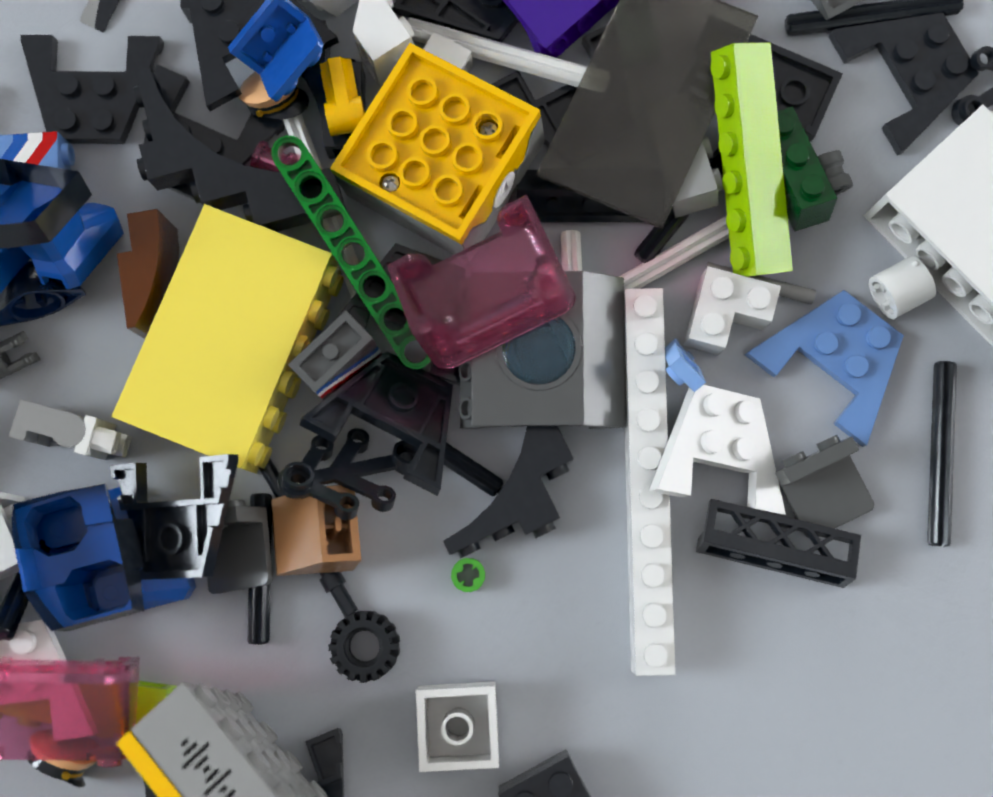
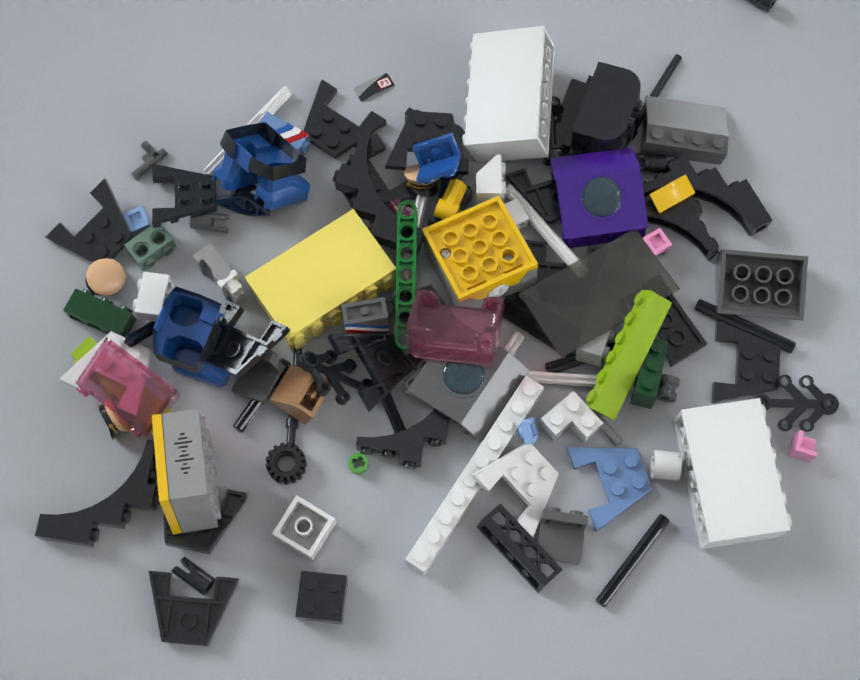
camera: 30 degrees right, 10 degrees down
(147, 268) = (307, 221): reddish brown slope -> none

